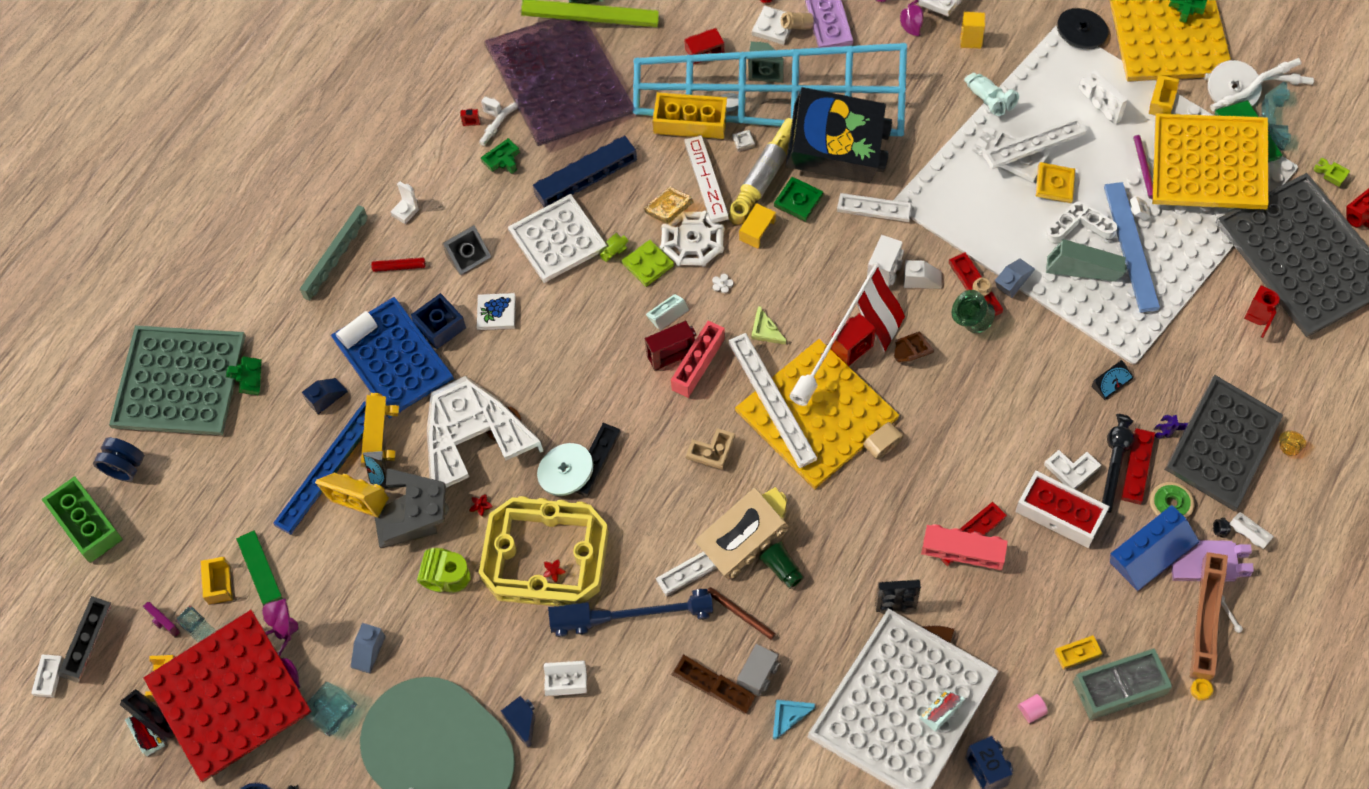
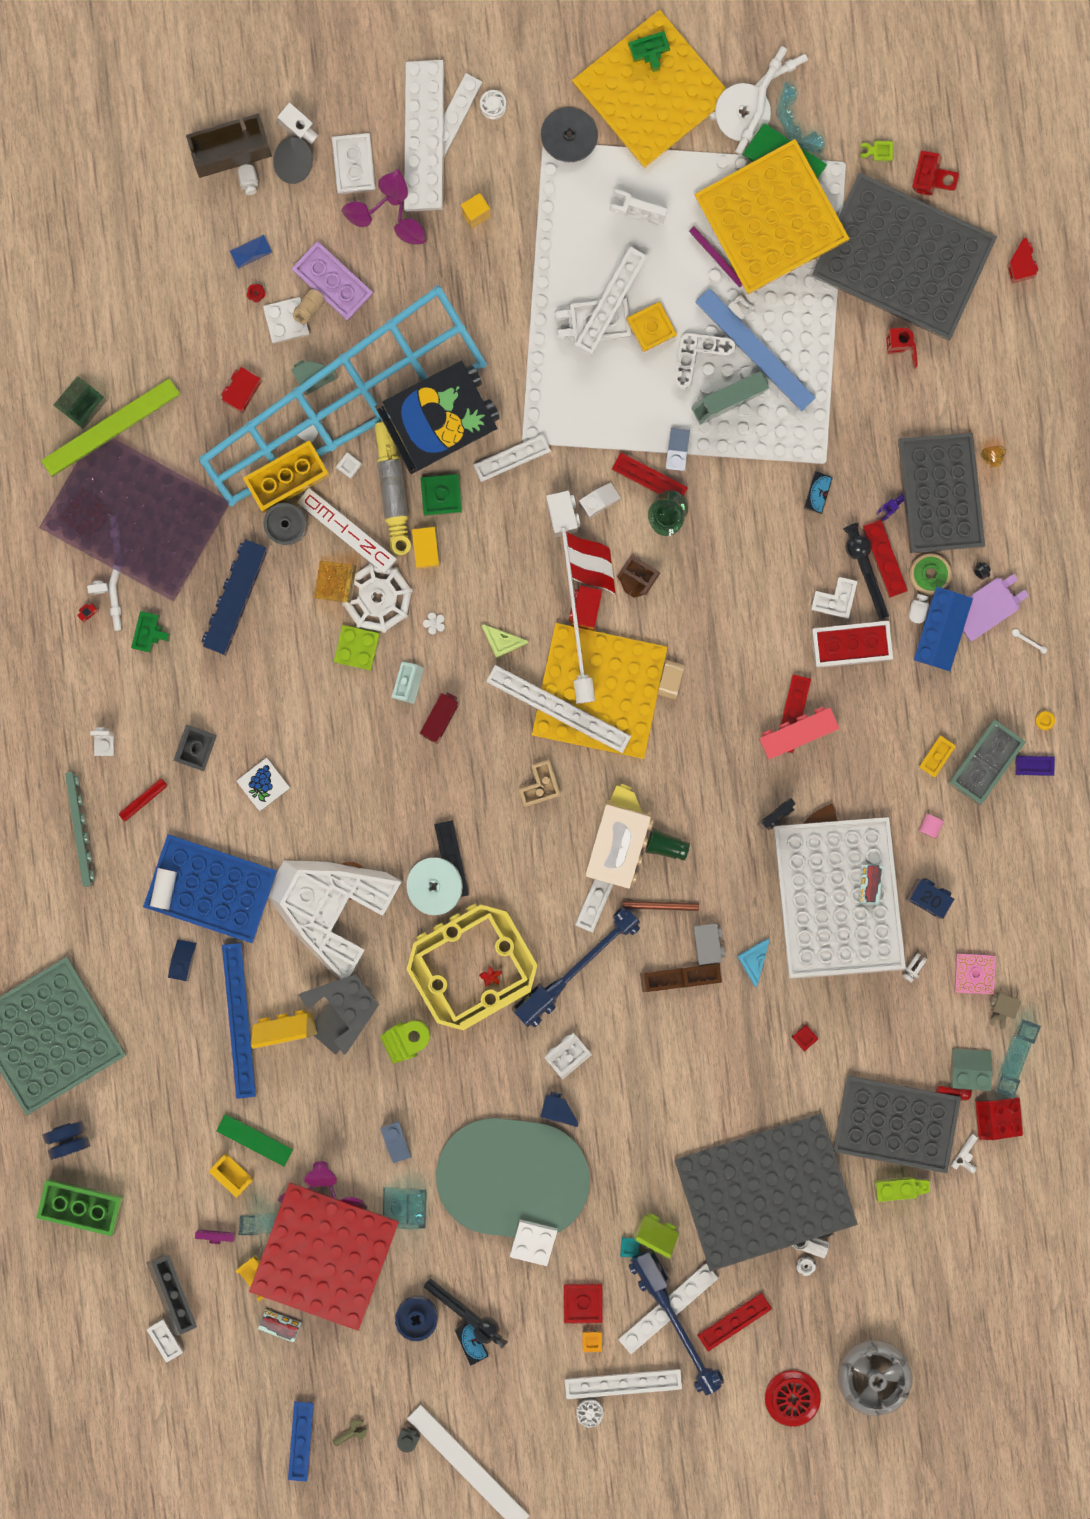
camera: 40 degrees left, 25 degrees up
(147, 714) = (271, 1312): black plate -> none
(247, 374) = (103, 991): green hinge -> none
(374, 425) = (254, 966): yellow brick -> none
(376, 467) = (285, 996): slope -> none
(438, 321) = (225, 831): dark blue brick -> none
(480, 504) = (388, 962): red plant -> none
(557, 238) = (261, 679): white plate -> none
(616, 245) = (319, 651): lime plate -> none
(663, 144) = (297, 524): none -> dark grey wheel
(698, 359) = (470, 713): coral brick -> none
(983, 286) = (658, 480): tan plate -> none
(991, 94) = (533, 268): light aqua piece -> none
(1141, 520) = (919, 609): none -> white arm
(1164, 95) = (689, 168): yellow panel -> none
(1166, 721) = (1035, 765): none -> dark purple tile
(1207, 617) = (1017, 661): nougat arch -> none
(1250, 529) = (1006, 558): white plate -> none

